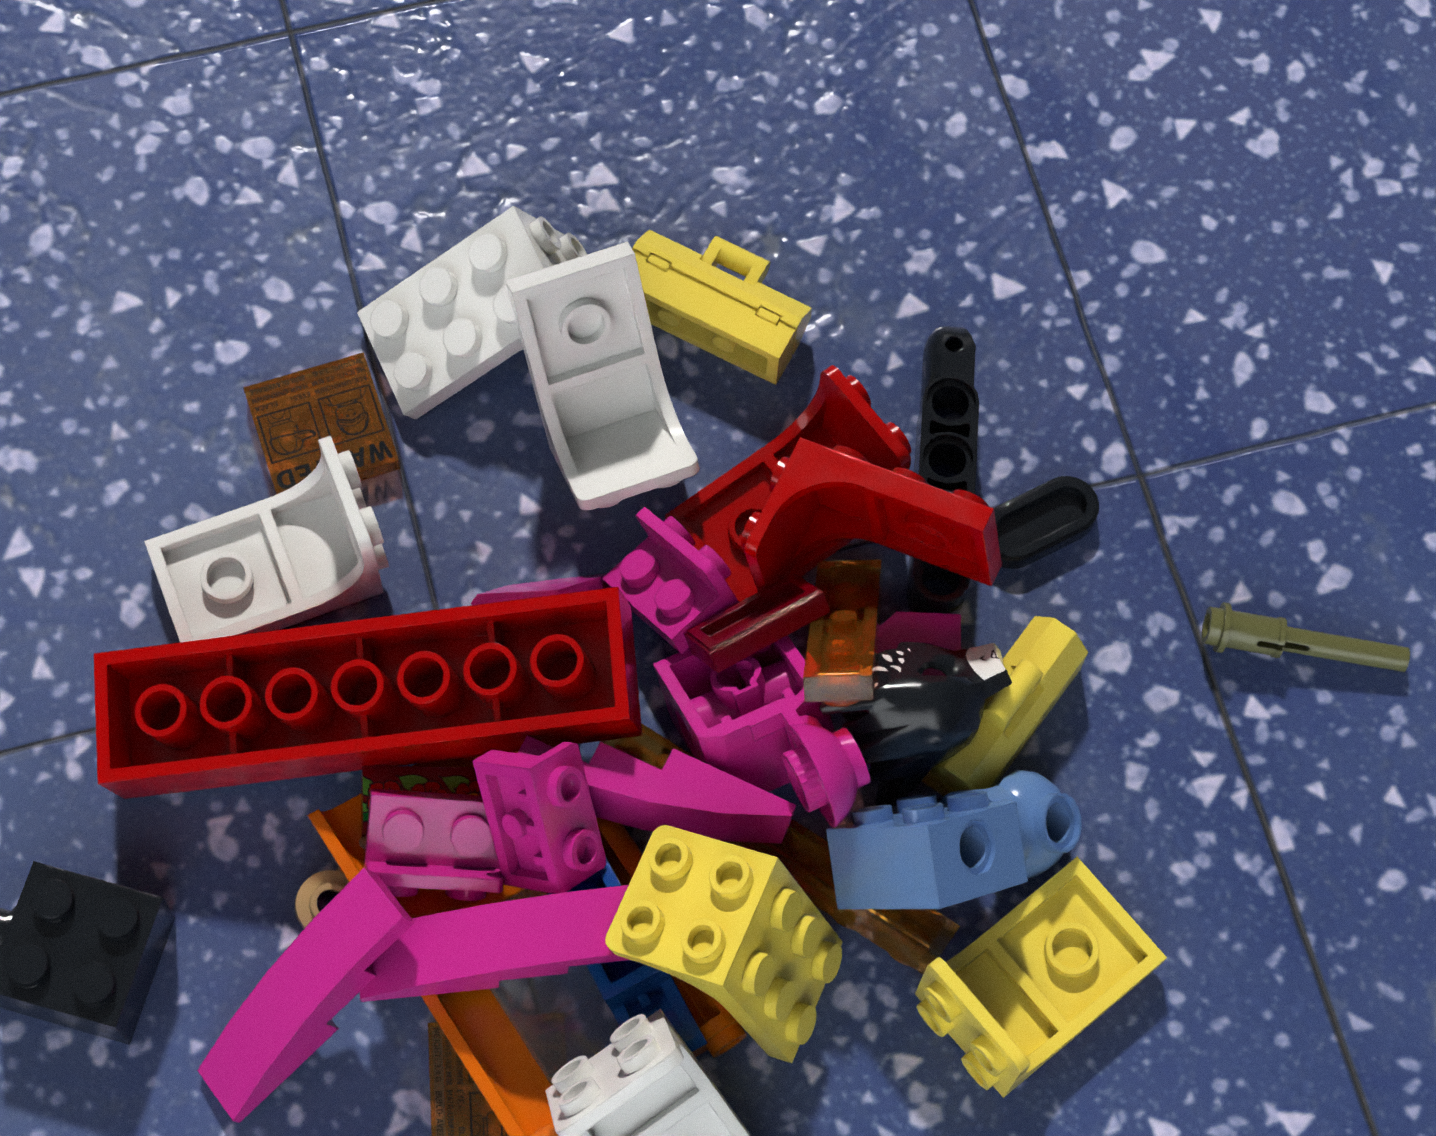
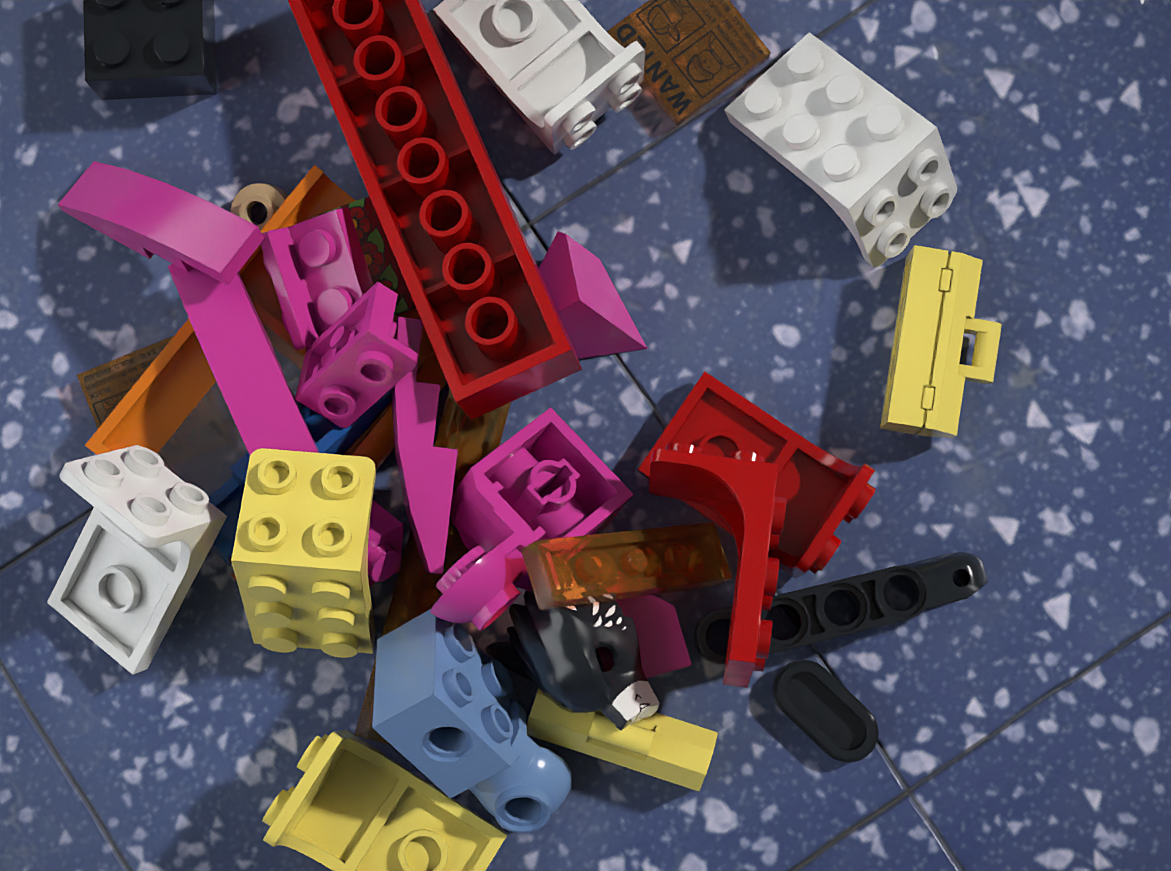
camera: 80 degrees right, 15 degrees up
(600, 378) = (796, 270): white bracket -> none
(671, 580) = (632, 398): dark pink bracket -> none
(756, 622) = (608, 484): dark red tile -> none

